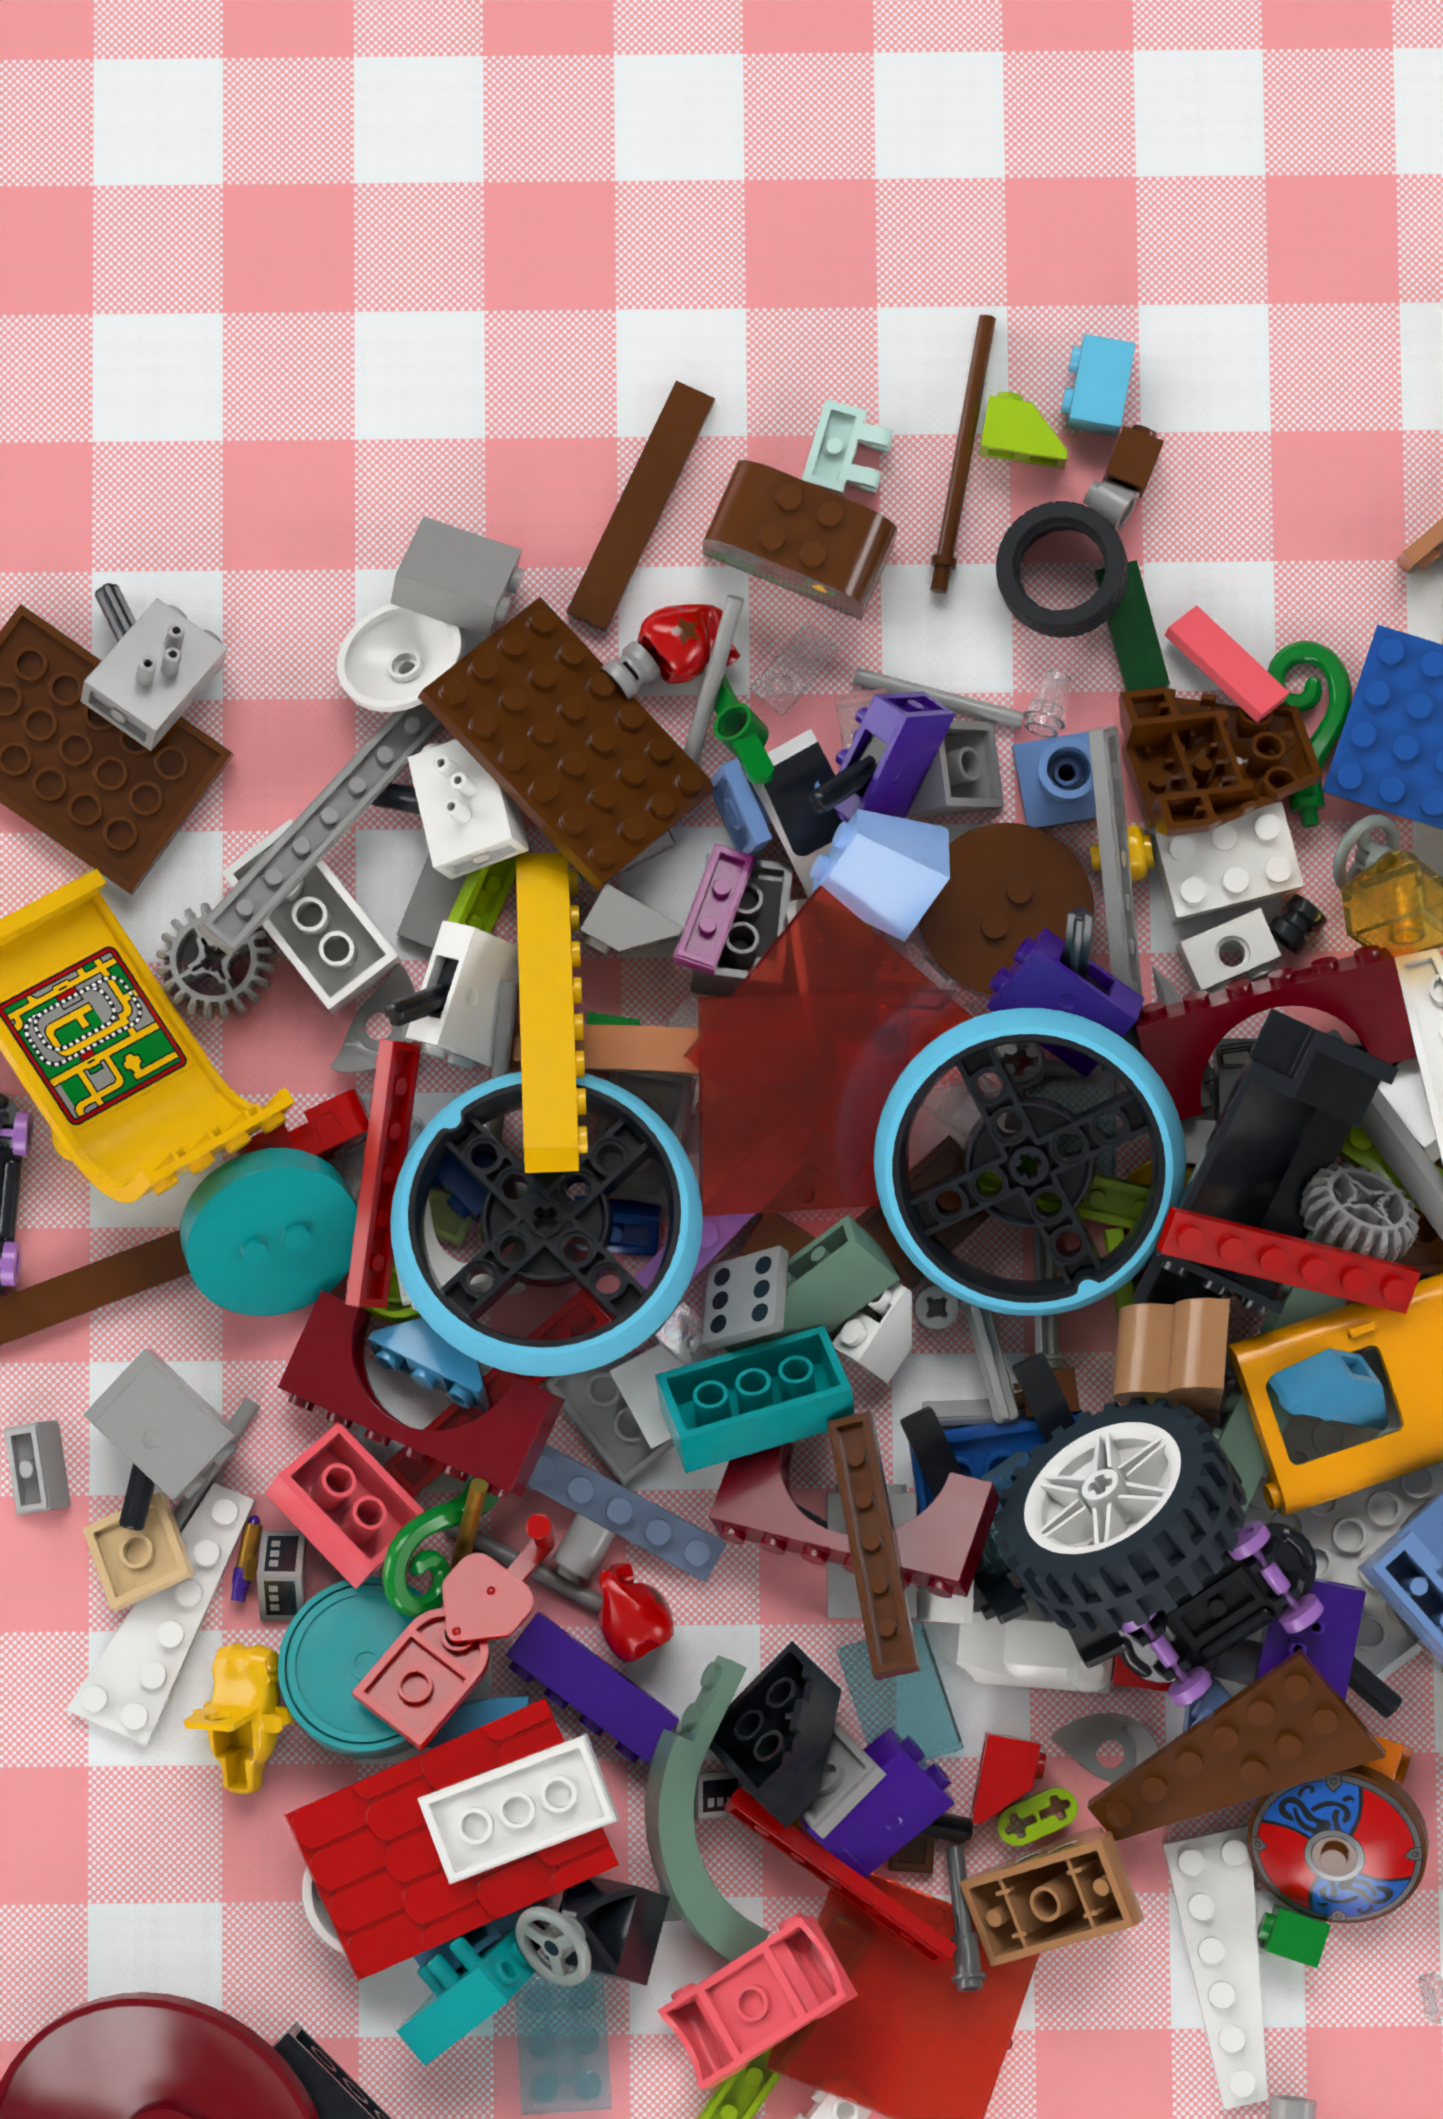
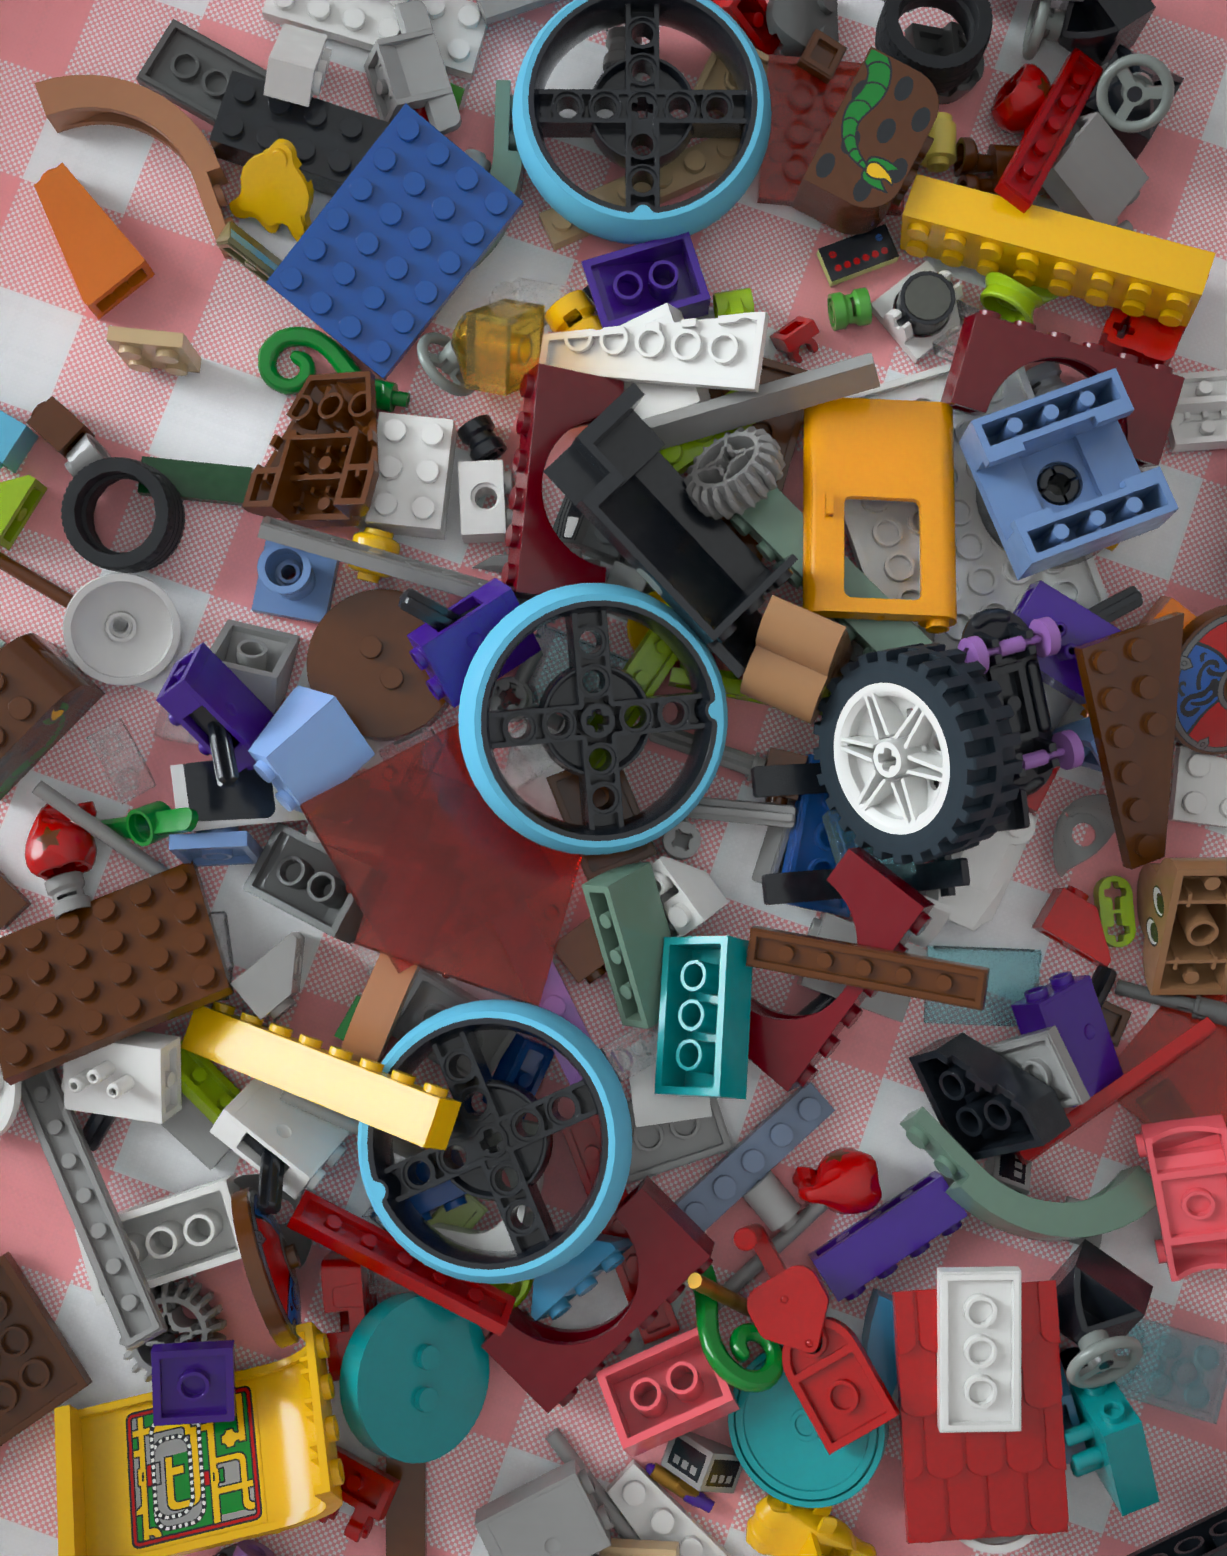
camera: 70 degrees left, 0 degrees up
(129, 1224) = (367, 1491): none -> red plate
(179, 1003) = (193, 1382): none -> dark purple plate
(334, 1039) = (269, 1267): none -> dish
(714, 909) = (289, 900): tile -> none
(745, 1298) = (618, 994): light grey tile -> none
(934, 643) = (127, 654): none -> white dish
(950, 700) = (205, 635): light grey bar -> none
(1049, 705) = (234, 571): clear cone -> none
(1227, 664) = (253, 416): coral tile -> none
(1254, 520) = (154, 349): none -> tan plate
(1288, 1260) = (753, 539): red plate -> none
(1333, 1387) = (868, 544): dark azure slope -> none
(1348, 418) = (95, 249): none -> orange slope
(1407, 591) = (247, 251): none -> olive slope

